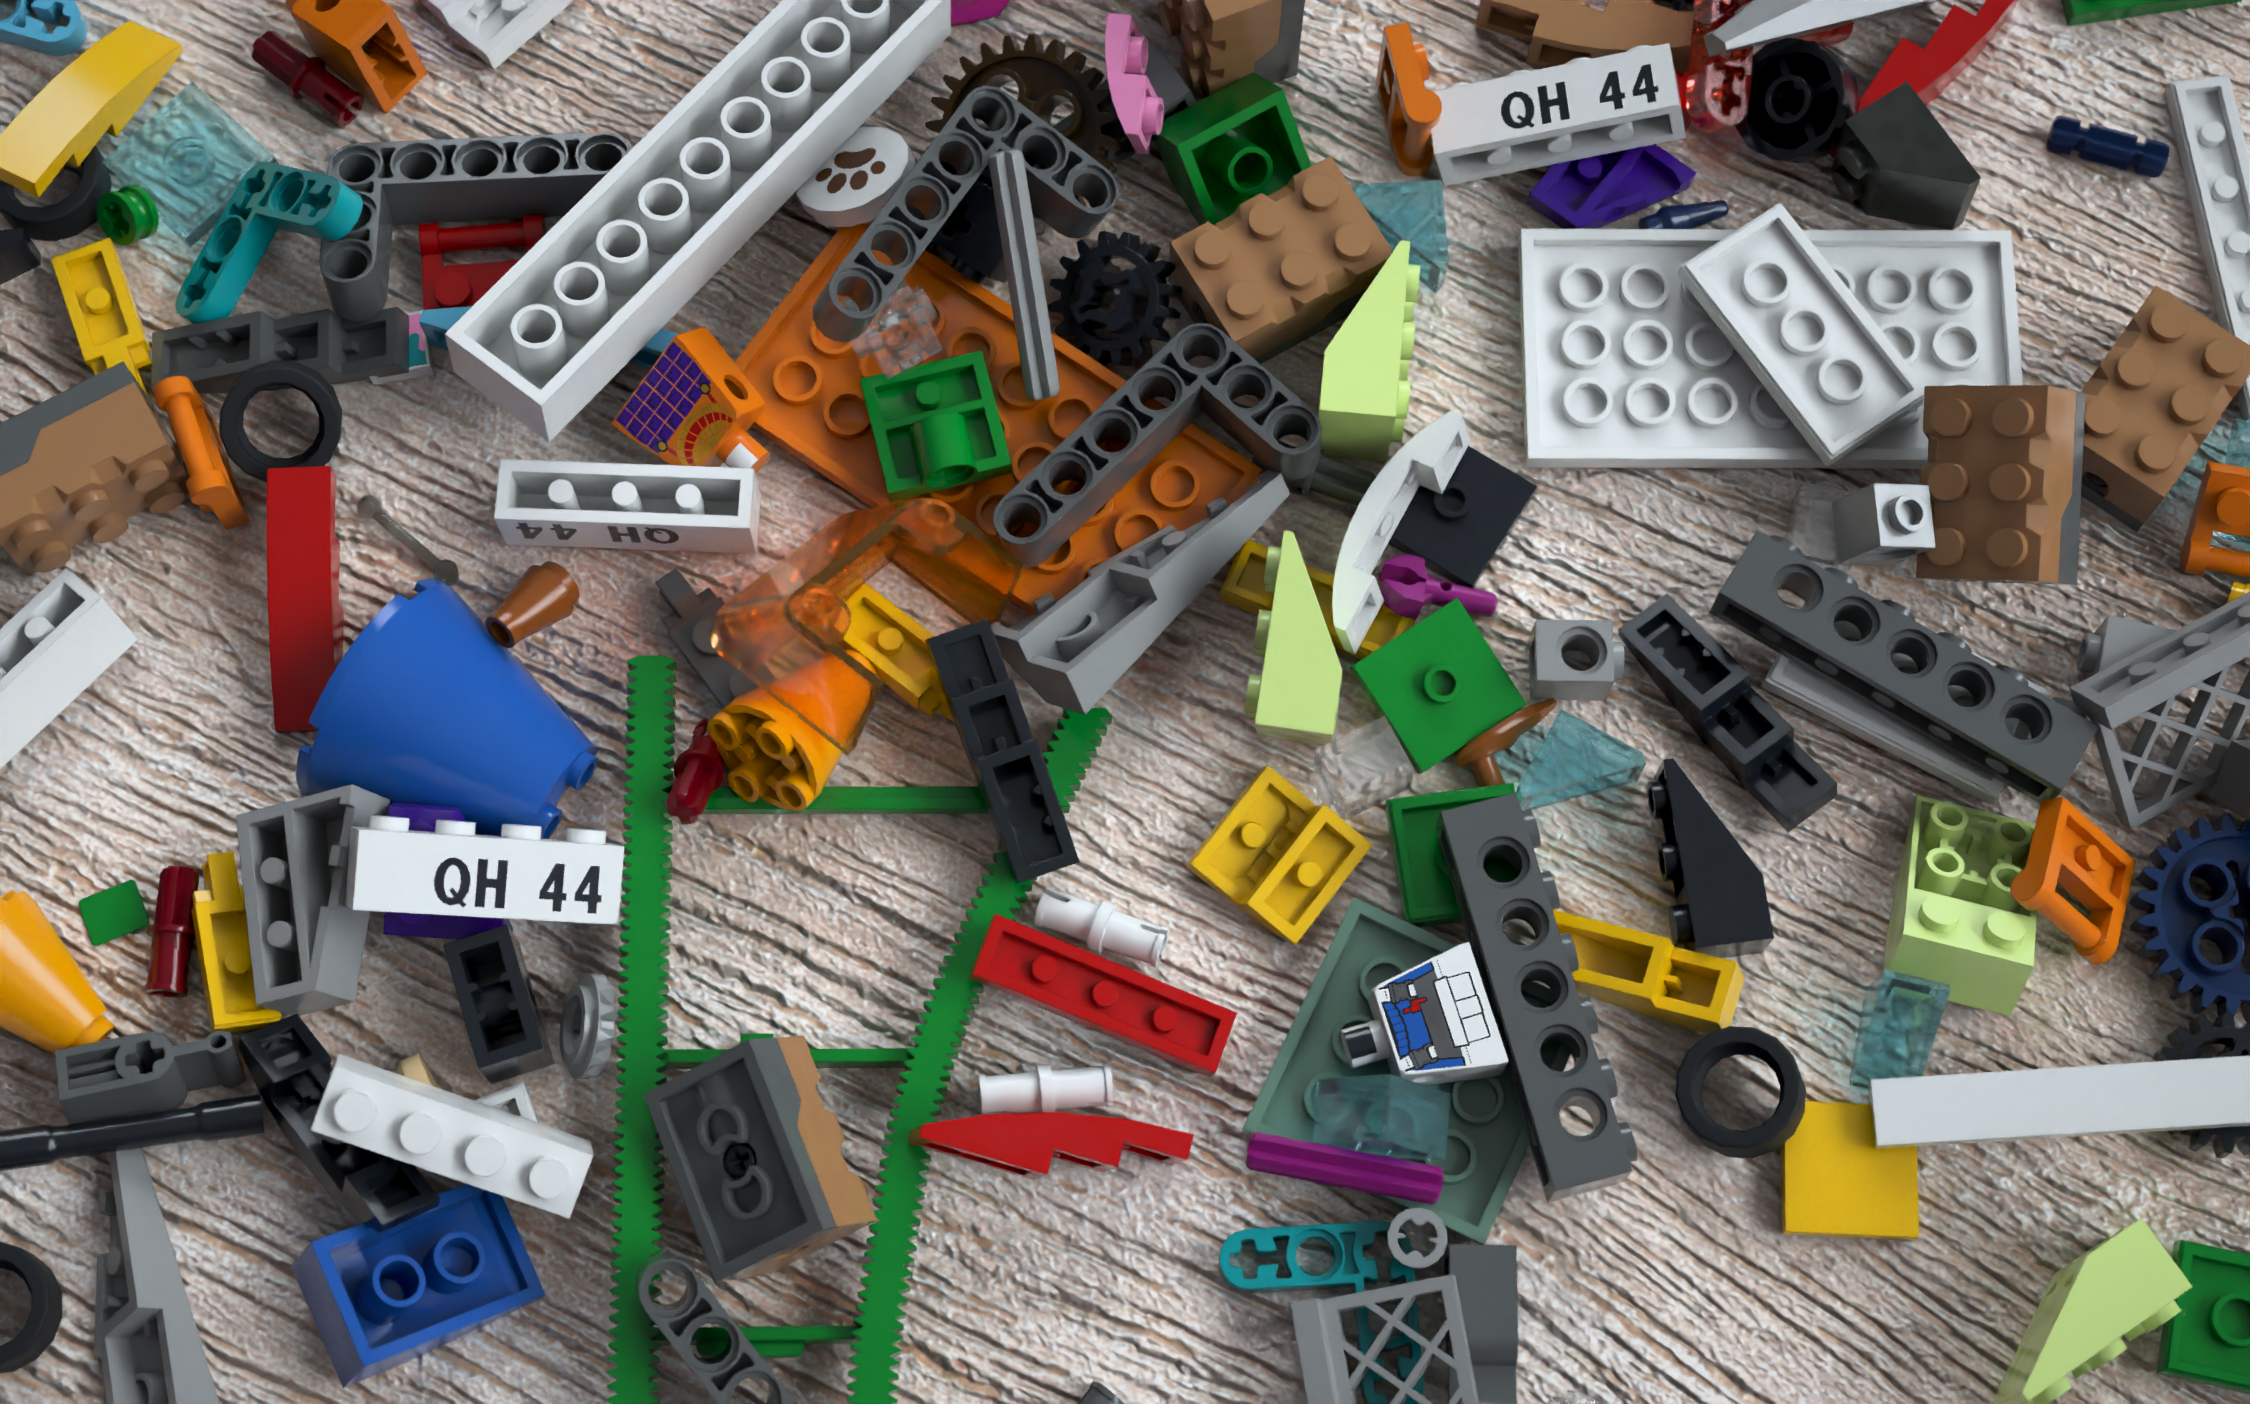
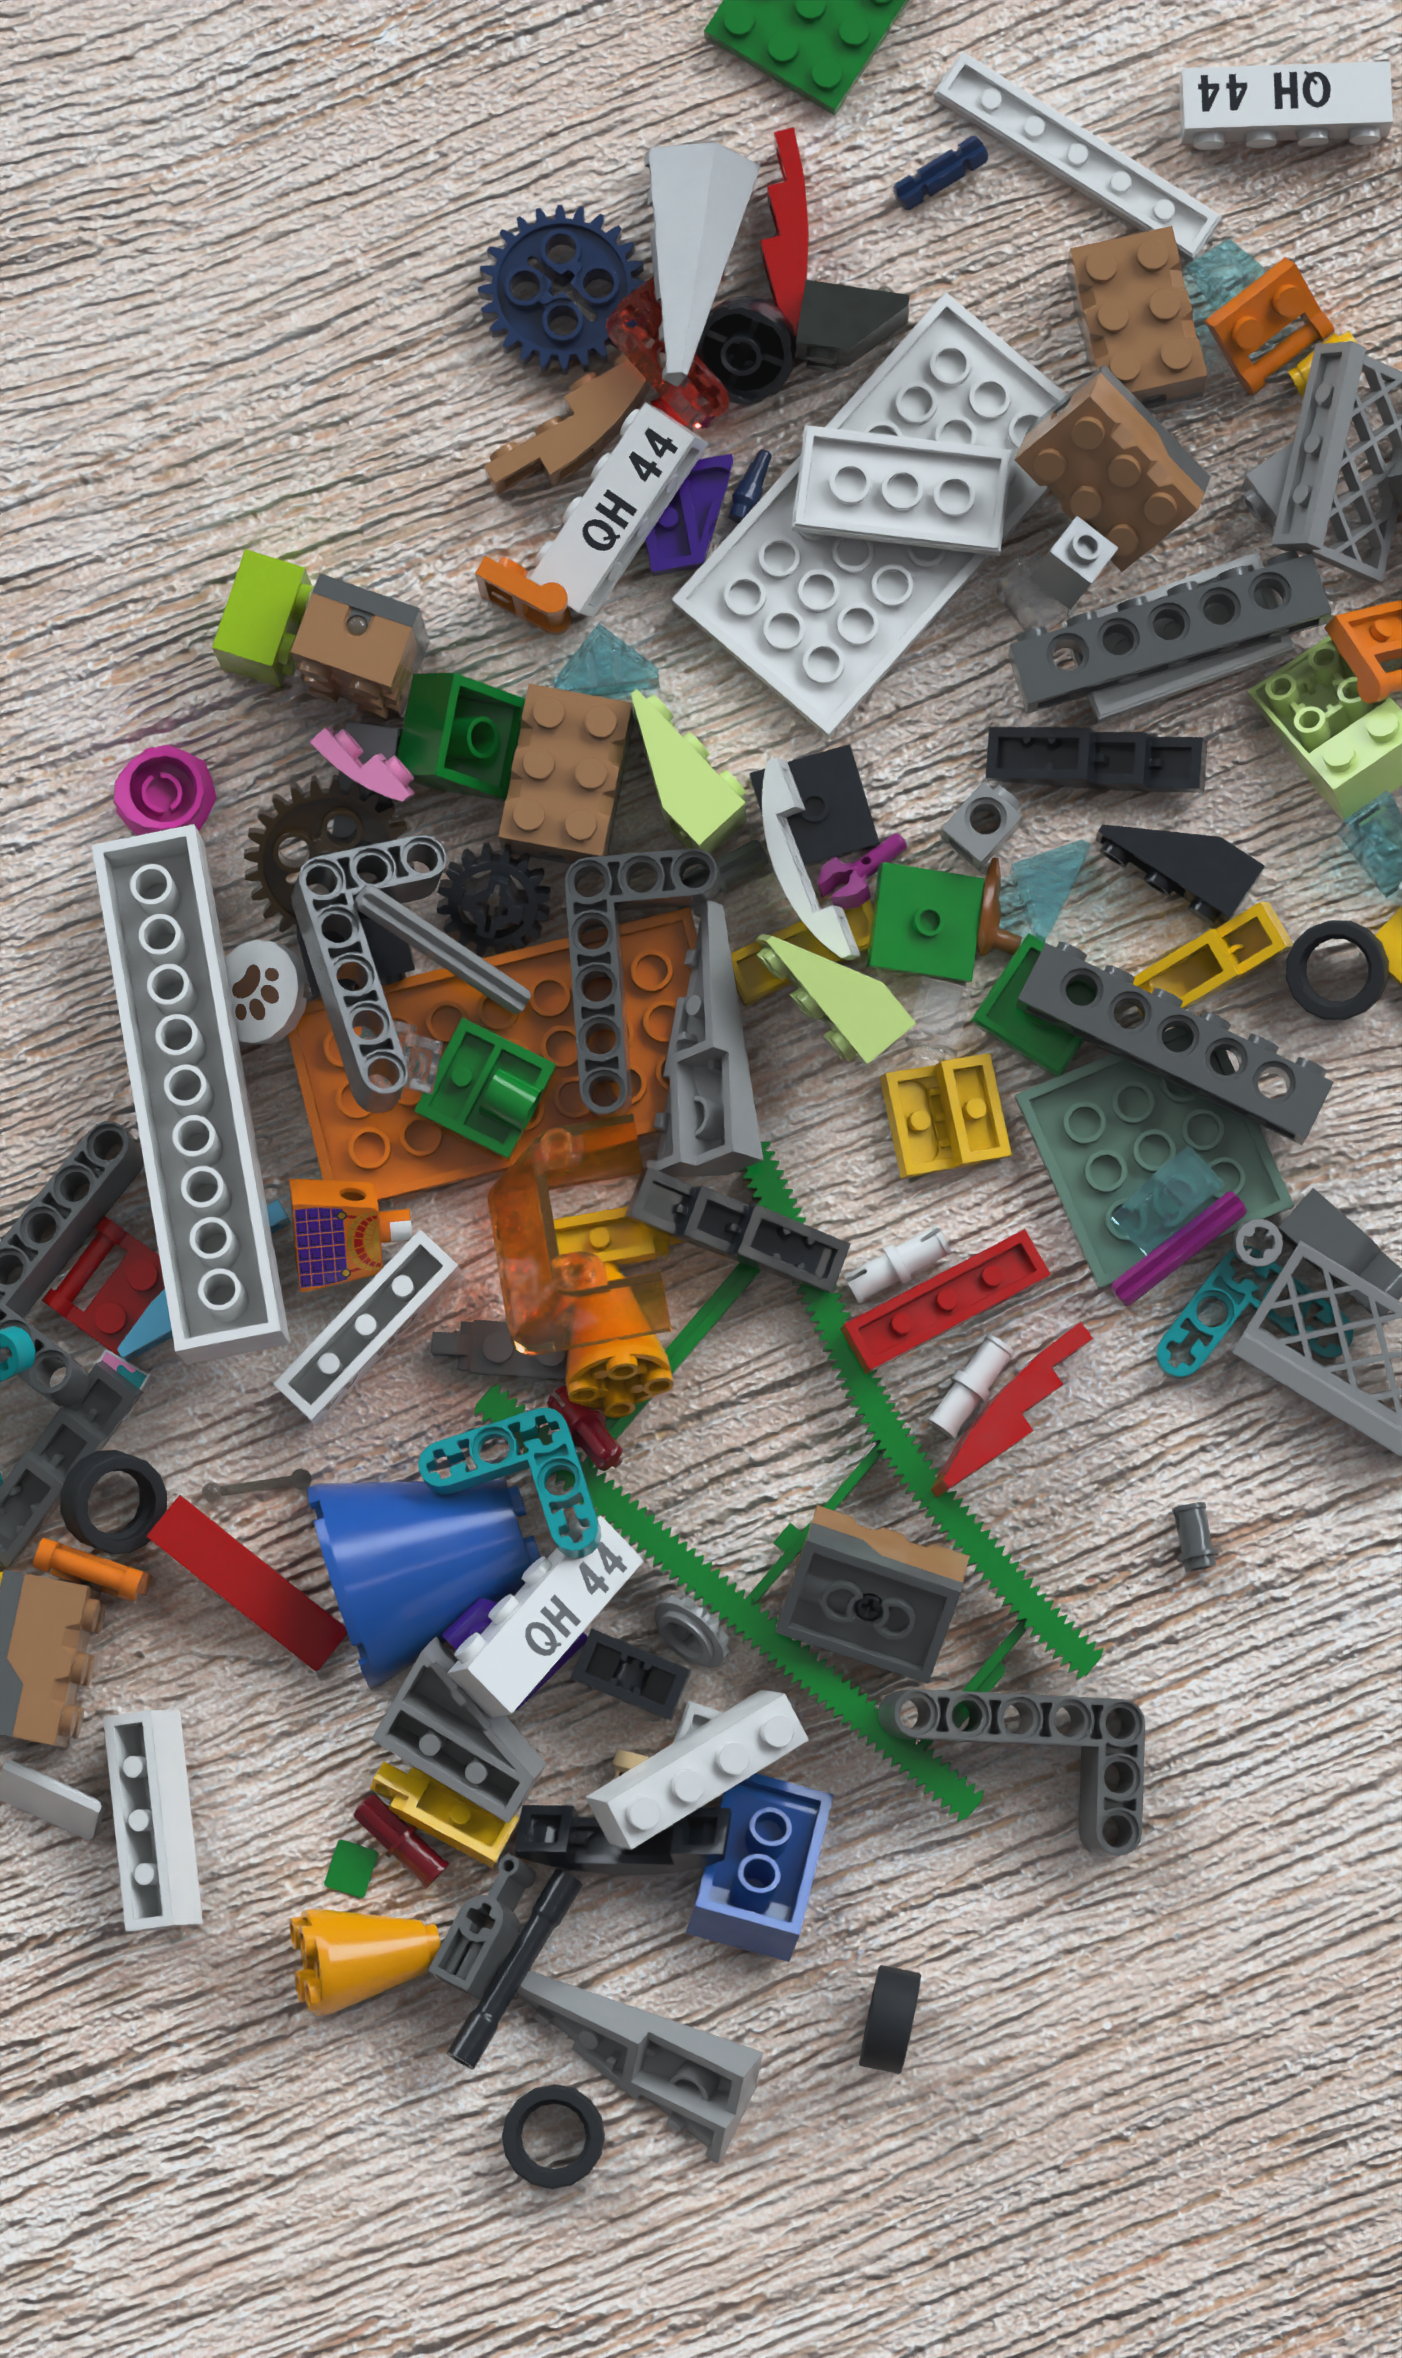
camera: 40 degrees left, 10 degrees up
(535, 602) = (378, 1438): dark orange cone -> none
(626, 747) = (540, 1458): none -> teal beam
(1431, 1024) = (1138, 1120): torso -> none

